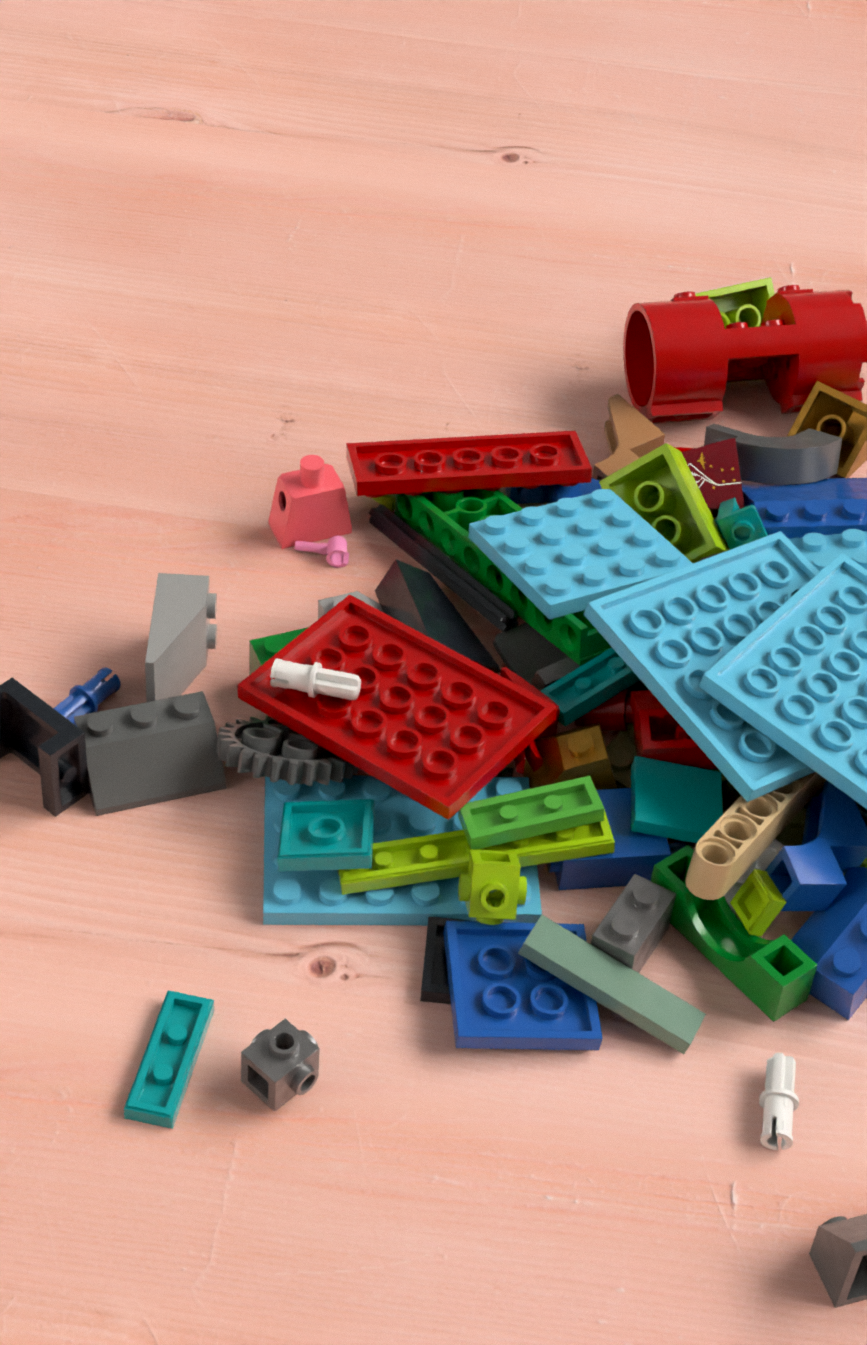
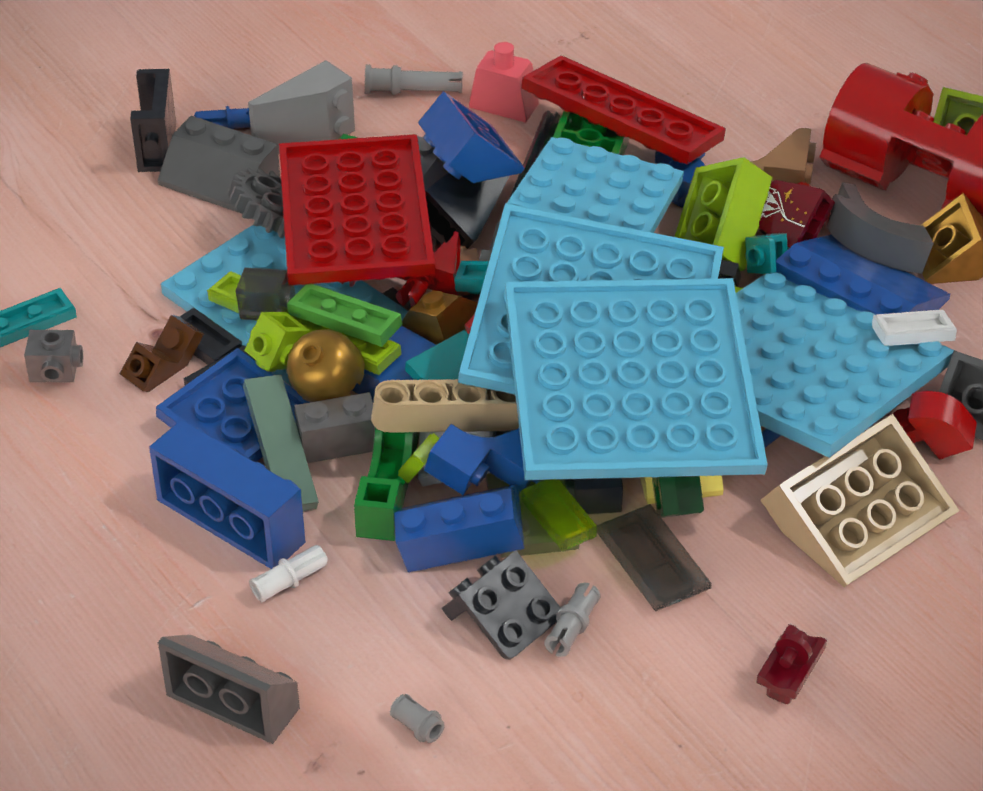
camera: 50 degrees right, 0 degrees up
(194, 559) = (396, 80): none -> light grey pin
(315, 679) = (313, 161): white axle -> none
(326, 835) = (228, 255): teal tile -> none
(335, 550) = (491, 119): bright pink hand -> none
(369, 983) = (152, 365): none -> reddish brown slope
(376, 938) = (215, 341): none -> black tile
(407, 573) = (467, 142): none -> blue slope
(431, 846) = (263, 291): none -> clear smoke brick
(571, 878) = (324, 365): none -> pearl gold cylinder
(653, 1067) = (228, 494): none -> blue brick

